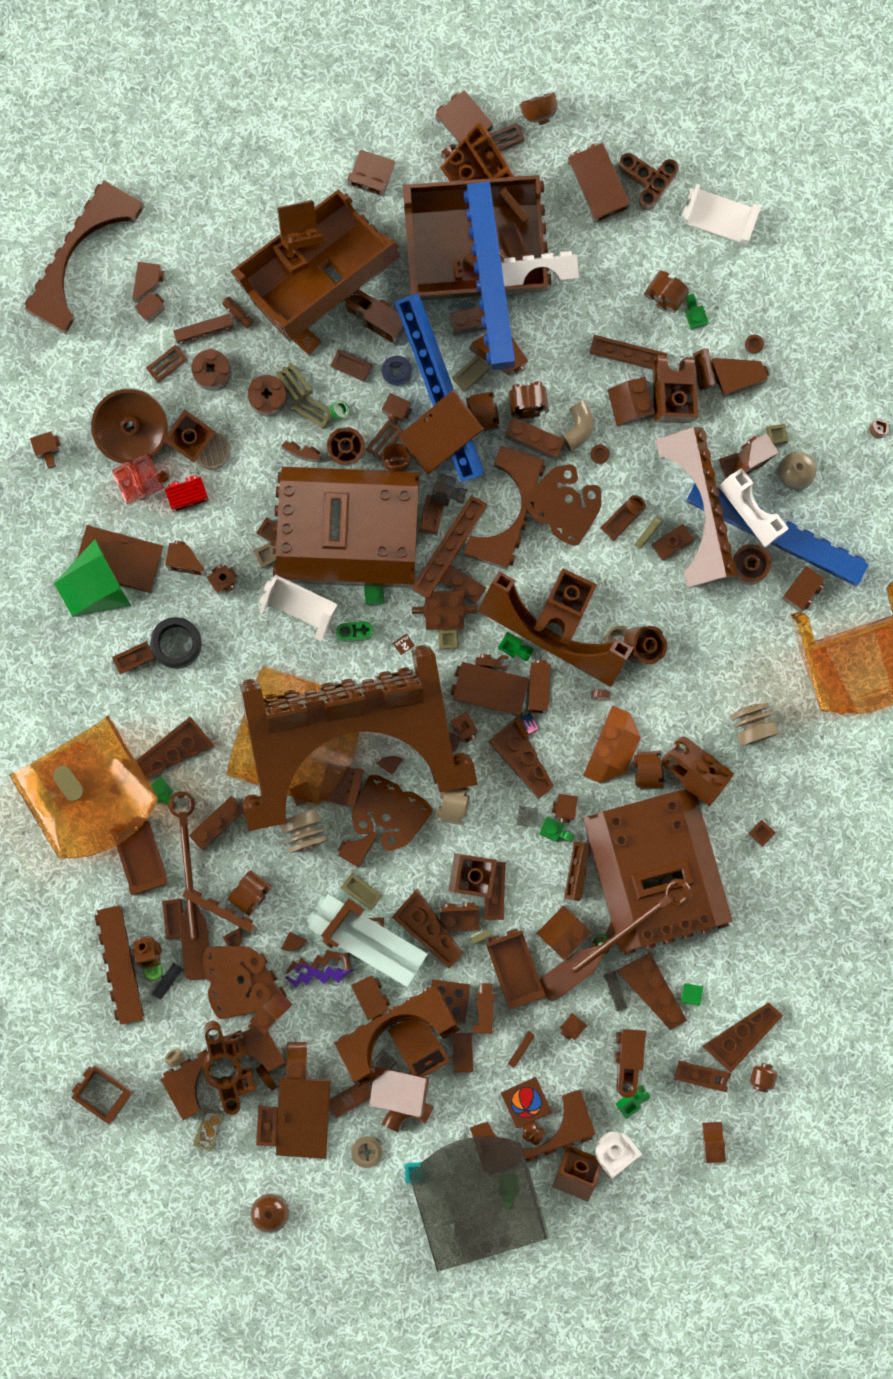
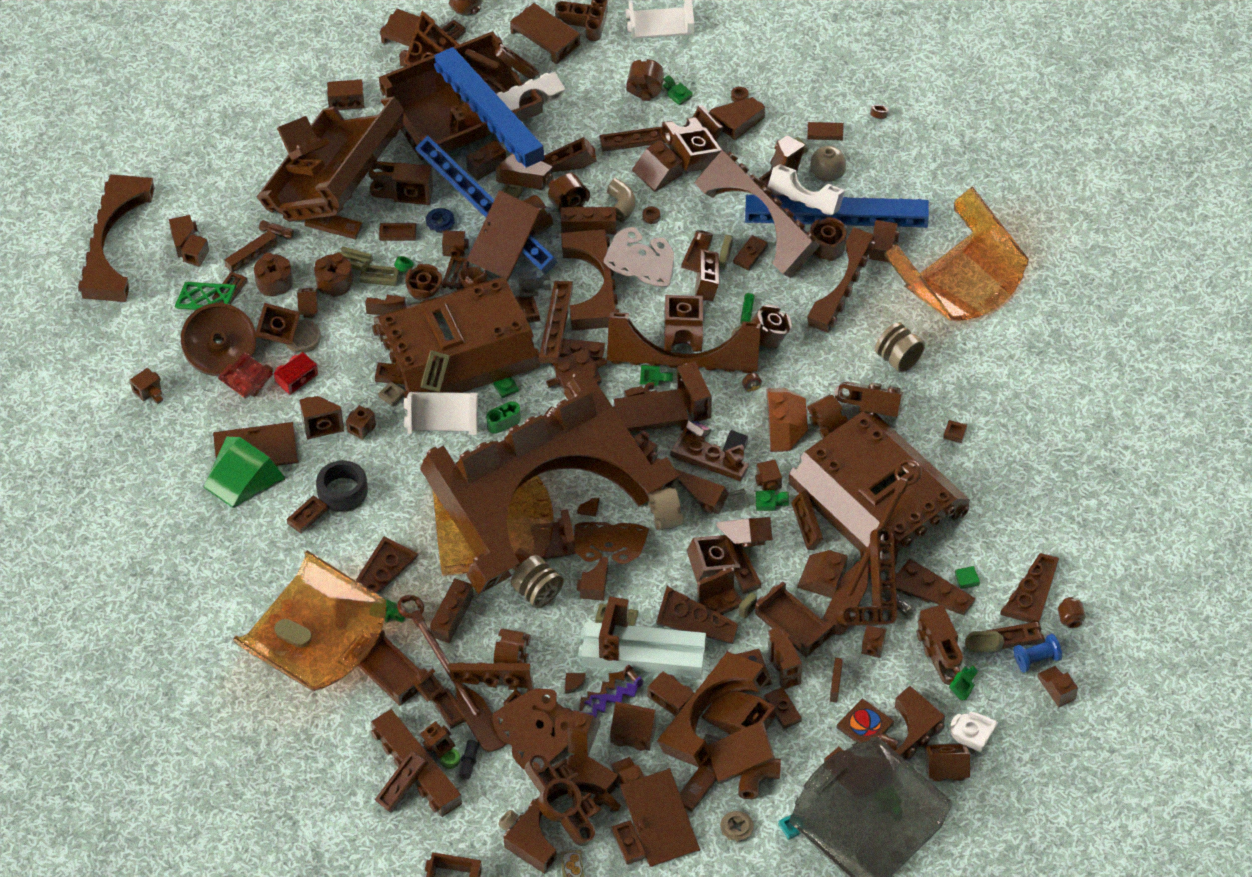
camera: 25 degrees left, 30 degrees down
(98, 981) = (401, 781): none -> reddish brown tile
(122, 351) = (200, 286): none -> green window
(161, 895) = (427, 684): none -> reddish brown bracket
(231, 413) = (307, 301): none -> reddish brown slope
(313, 556) = (442, 372): none -> olive tile
(319, 1019) = (633, 726): none -> reddish brown slope
(497, 799) = (706, 493): none -> reddish brown slope
(514, 862) = (747, 531): none -> slope
(541, 206) = (516, 62): none -> reddish brown beam
(545, 772) = (735, 455): none -> reddish brown tile
(550, 351) = (571, 156): none -> reddish brown slope
(553, 756) = (734, 439): none -> black slope
(603, 980) = (878, 585): none -> reddish brown beam
(617, 554) = (707, 275): none -> reddish brown slope
(637, 607) = (747, 307): none -> green axle
(670, 1071) = (984, 641): none -> olive tile
(707, 647) = (825, 311): none -> reddish brown arch
(711, 1105) = (1037, 653): none -> blue piece
(815, 427) = (825, 131): none -> reddish brown tile

